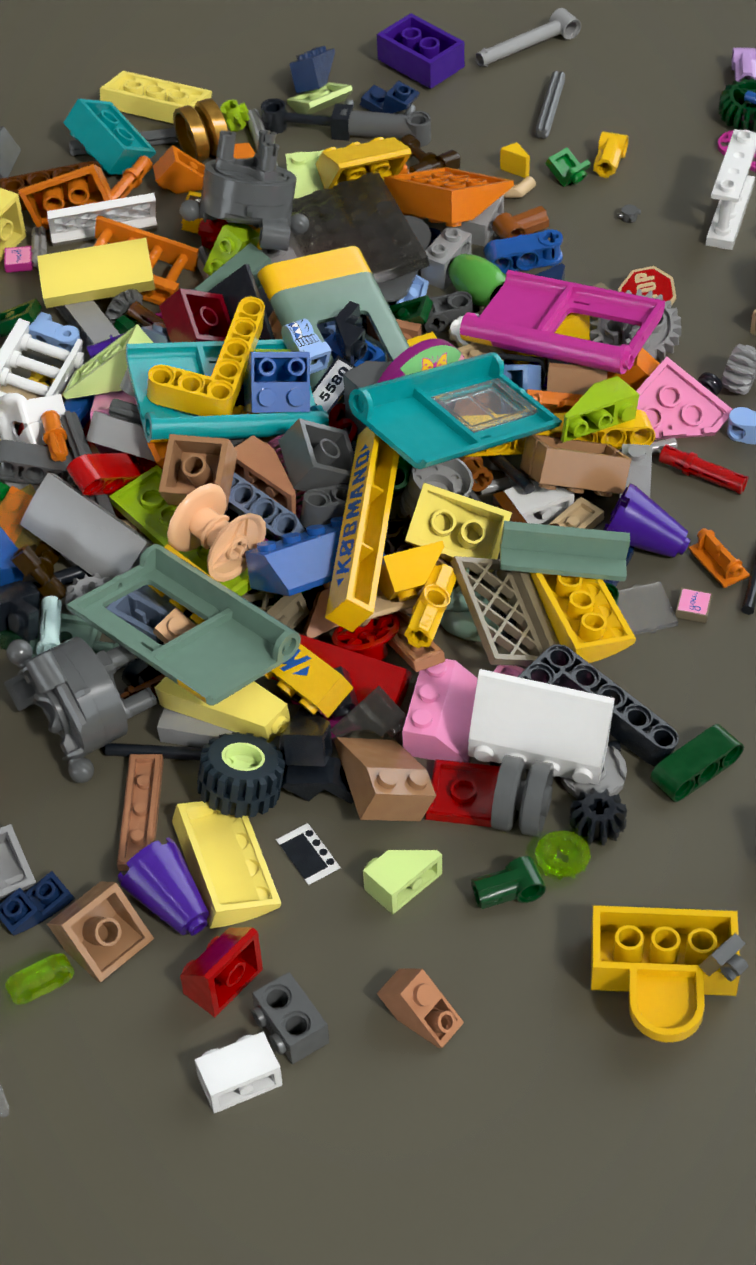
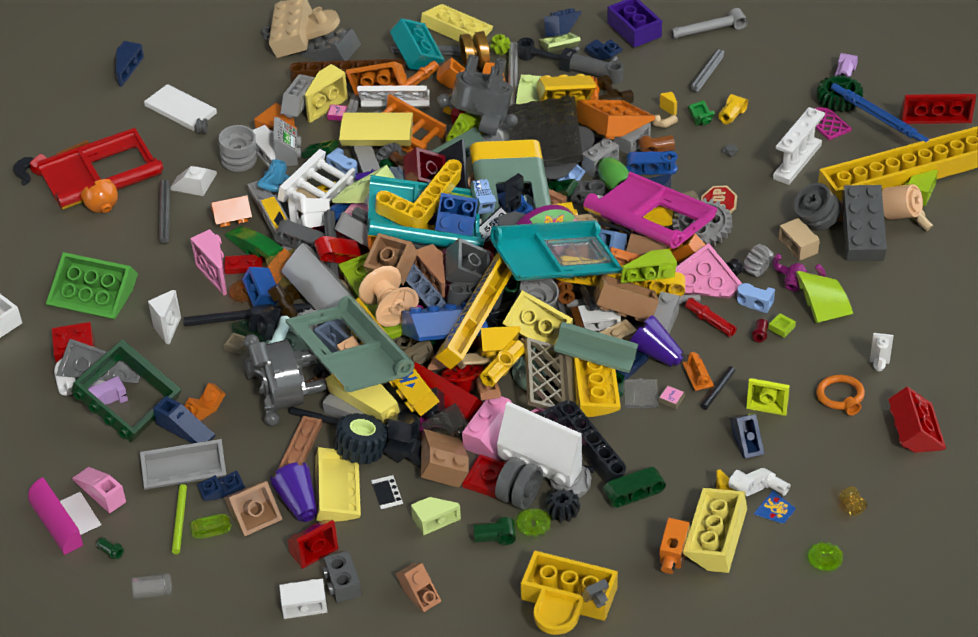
camera: 15 degrees right, 5 degrees down
(54, 435) = (317, 222): orange axle -> none

